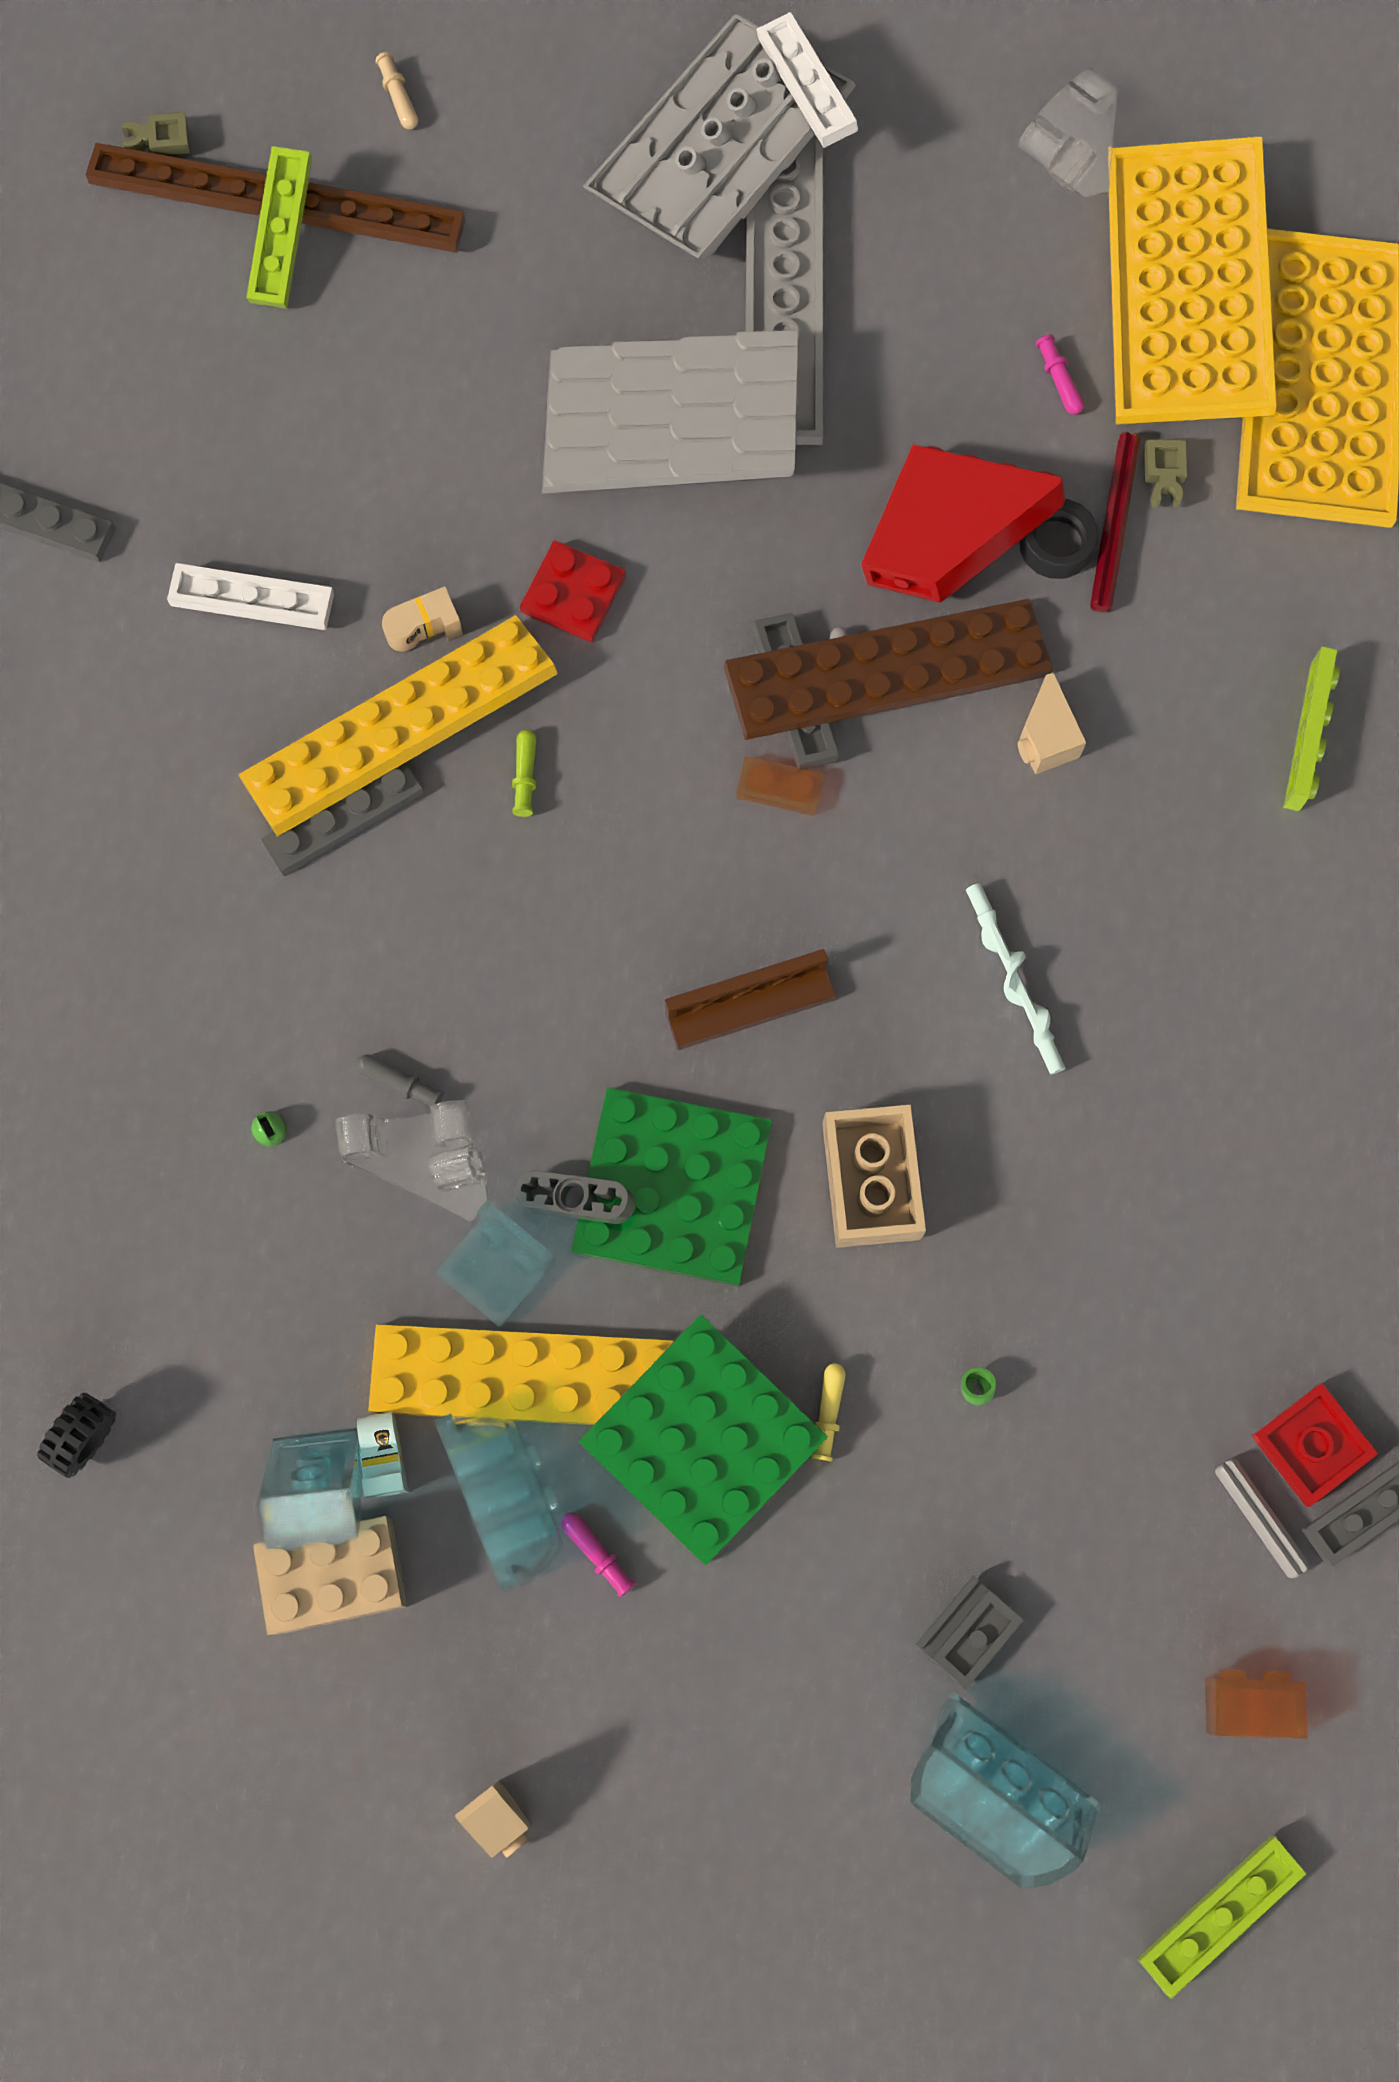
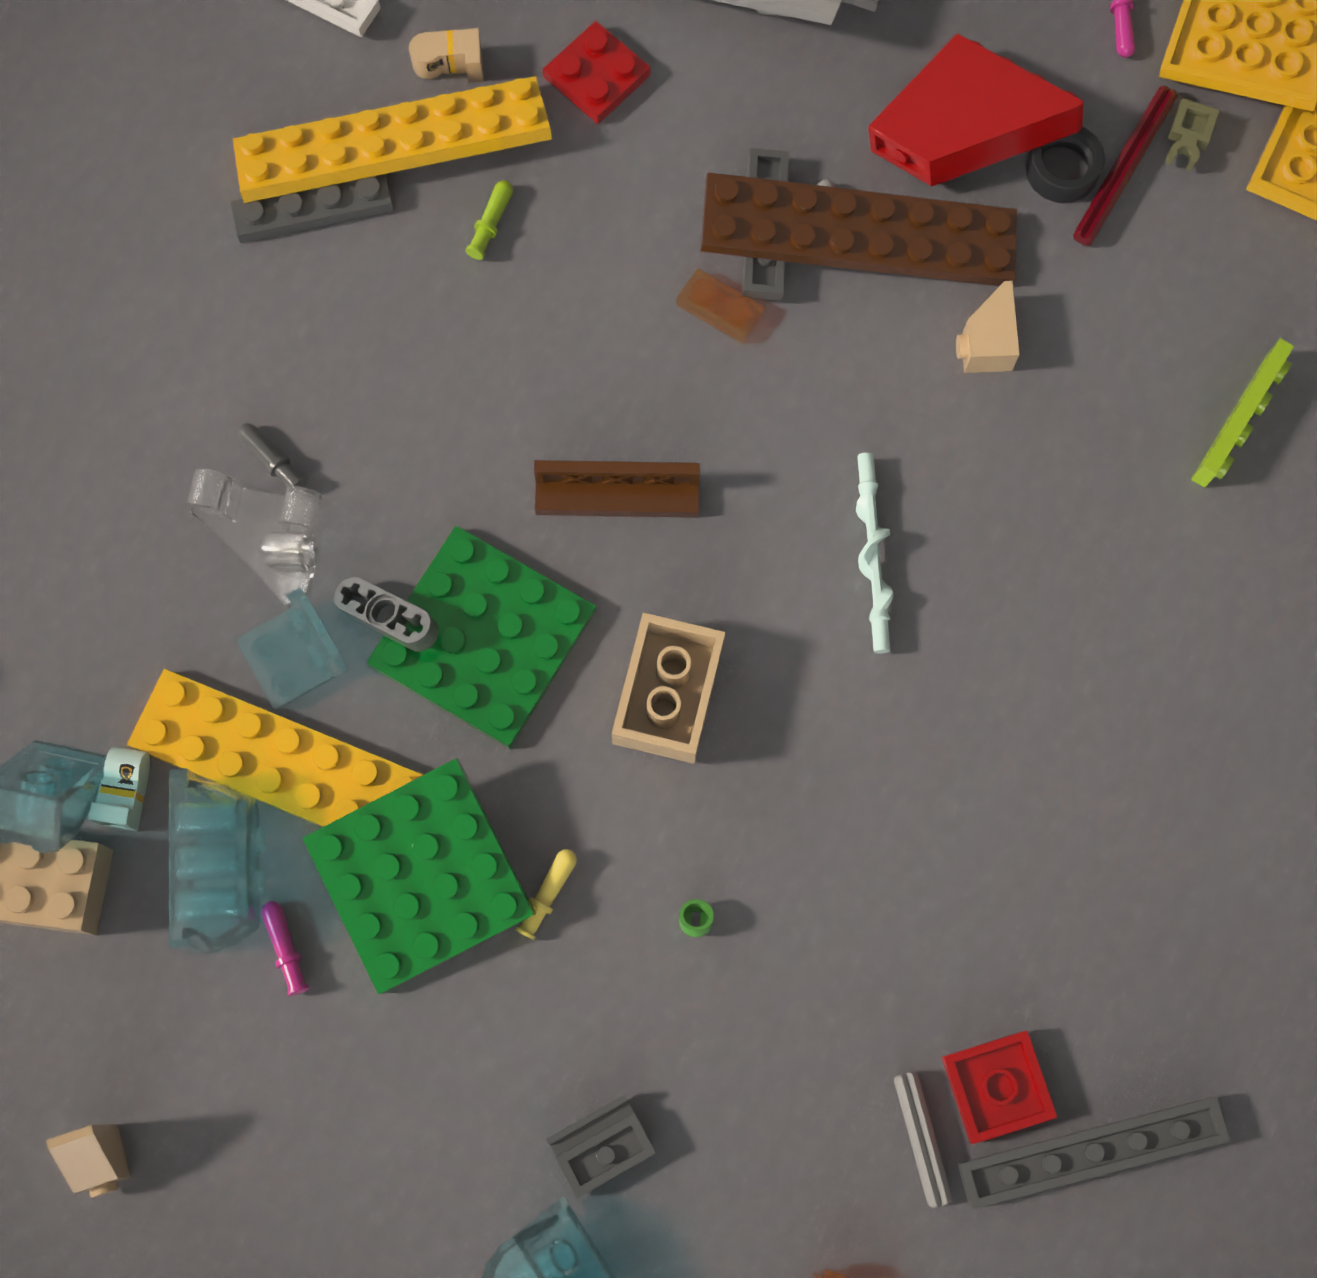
camera: 20 degrees right, 0 degrees up
(277, 1124) = (146, 460): bright green hinge -> none

